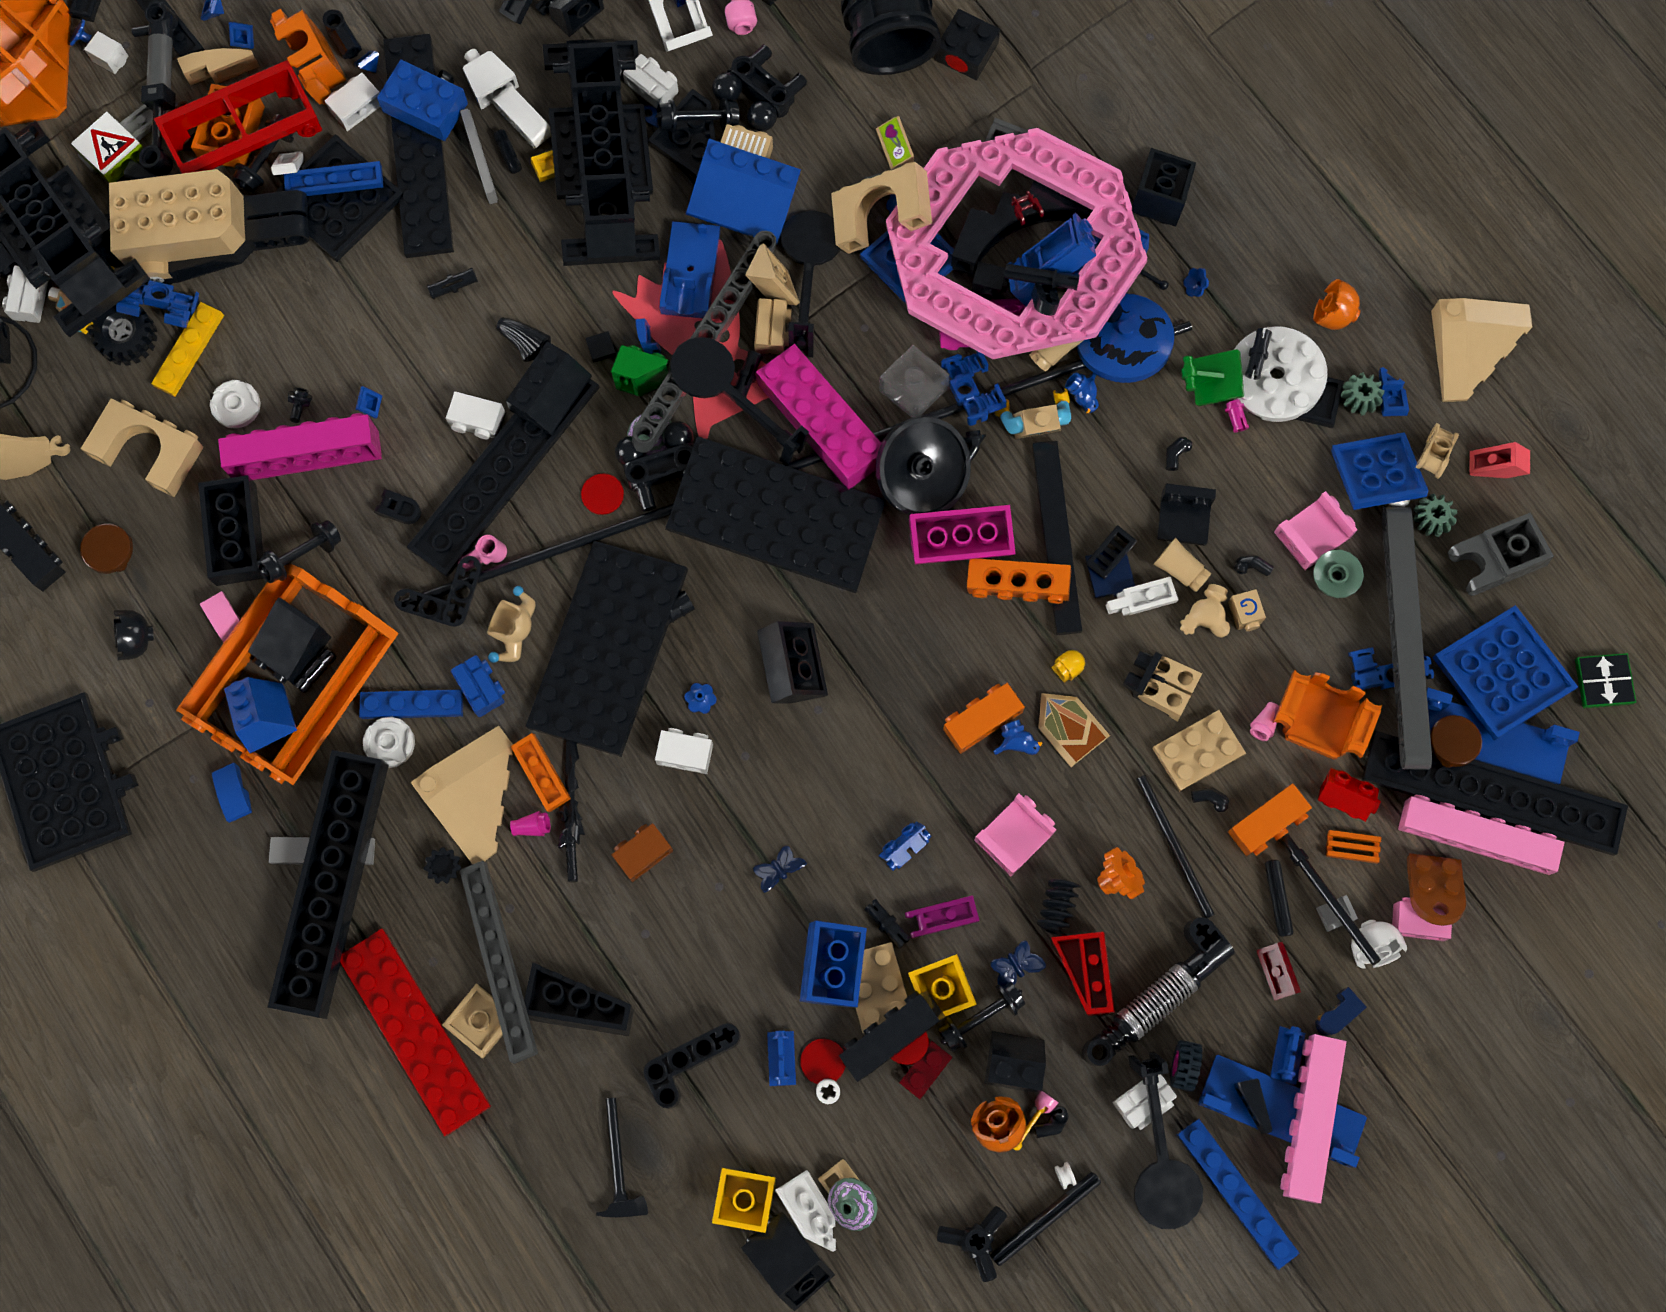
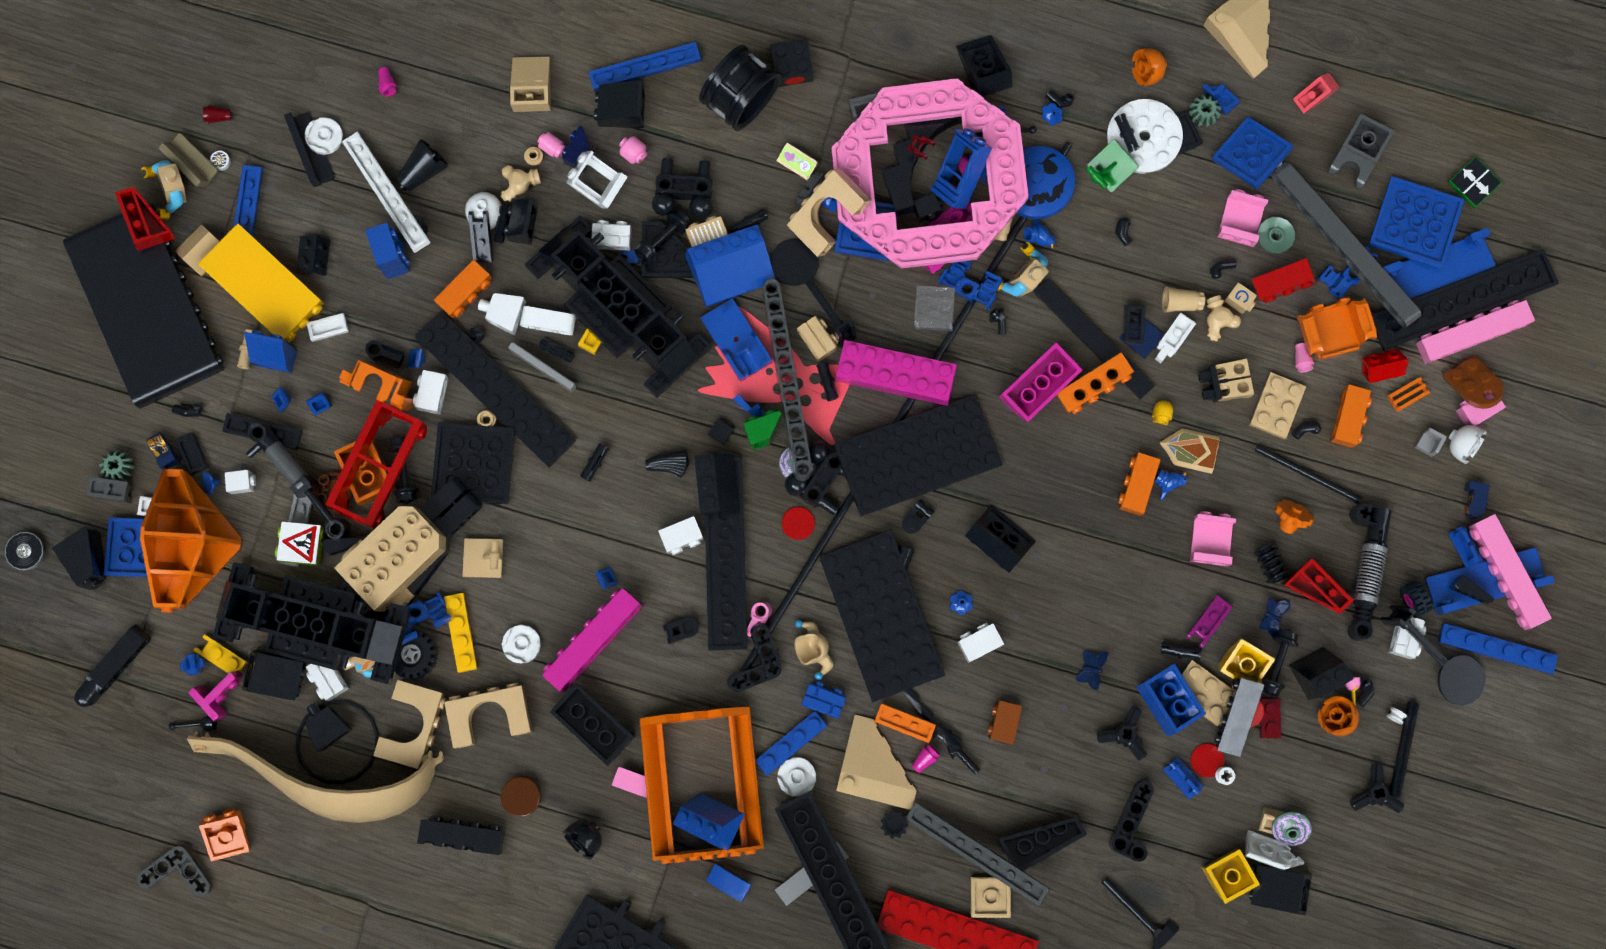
camera: 40 degrees left, 5 degrees up
(95, 393) = (414, 752): none -> tan arch
(216, 63) = (319, 434): tan slope -> none
(269, 294) = (483, 558): none -> tan plate
(273, 568) = (652, 683): black piece -> none
(287, 163) = (425, 465): white tile -> none
(287, 642) = (686, 766): black slope -> none
(299, 398) = (559, 609): black plate -> none
(315, 670) = (715, 766): black axle -> none
(336, 179) = (465, 453): blue plate -> none
(386, 160) = (486, 413): none -> tan plate
(422, 100) = (479, 359): blue brick -> none
(466, 29) = (463, 290): none -> orange brick
(707, 368) = (806, 400): black piece -> none
(716, 579) = (912, 523): none -> black plate
(746, 956) = (1116, 735): none -> black bush
(771, 277) = (795, 308): tan slope -> none
(807, 167) = (750, 221): none -> black pin
(911, 837) = (1154, 587): blue hinge -> none
(923, 466) = (984, 357): black dish -> none
(1042, 276) = (967, 185): black axle -> none
(1045, 299) = (980, 197): black beam -> none
(1185, 514) = (1159, 267): black bracket -> none
(1217, 279) = (1063, 101): none -> black arm
(1237, 415) = (1141, 181): dark pink pin -> none
(1278, 971) = (1423, 502): plate -> none
(1279, 898) = (1390, 458): black axle -> none
(1300, 859) = (1385, 425): black bar -> none
(1310, 626) = (1284, 281): none -> red wedge
(1426, 517) = (1309, 150): sand green gear -> none
(1437, 450) = (1277, 114): tan piece -> none
(1455, 741) = (1421, 286): reddish brown tile -> none

